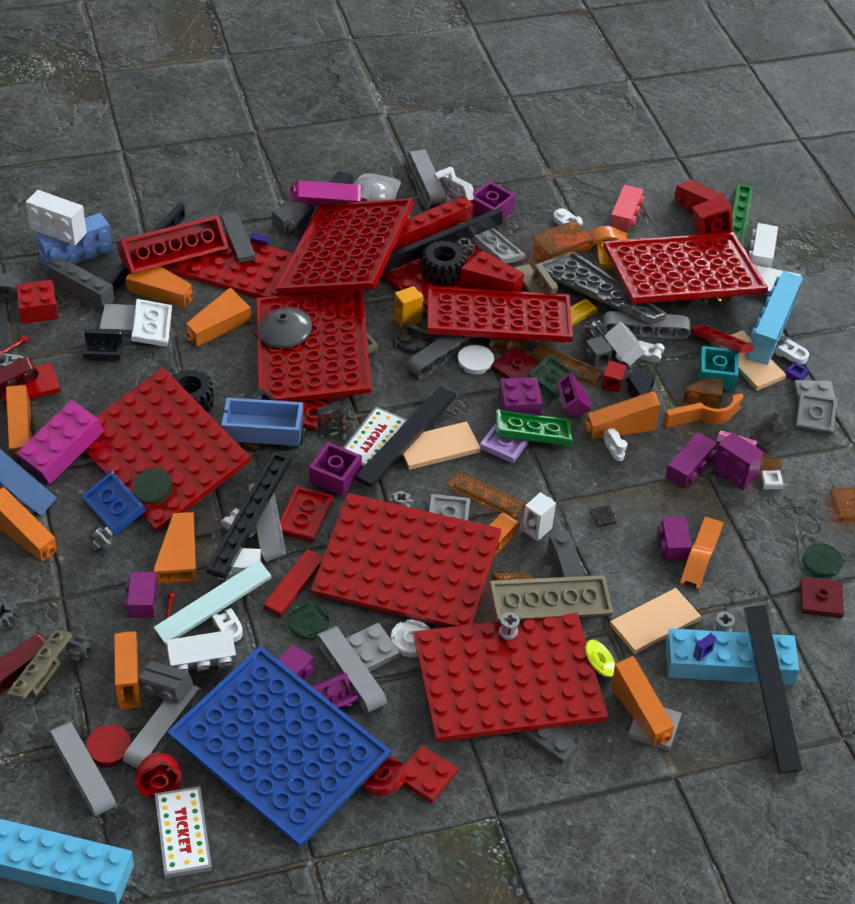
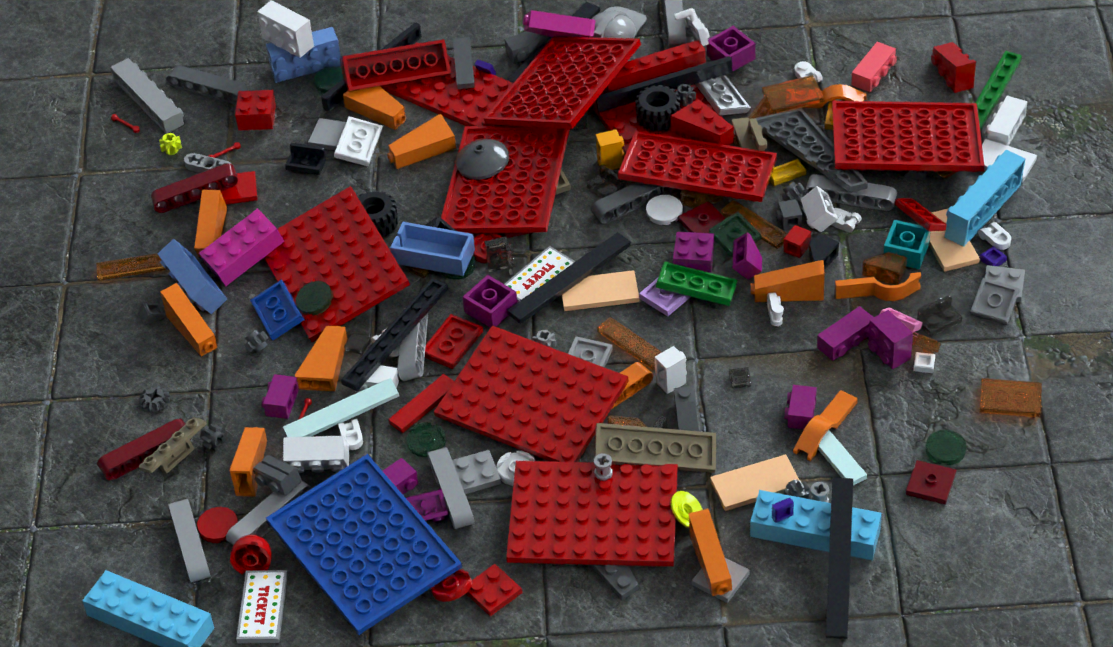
camera: 20 degrees right, 0 degrees up
(80, 283) = (301, 95): dark grey brick -> none
(104, 264) = (327, 78): none -> clear green tile
(701, 622) = (797, 489): none -> dark grey gear
(713, 217) = (957, 85): red brick -> none
(729, 586) = (841, 459): none -> light aqua tile

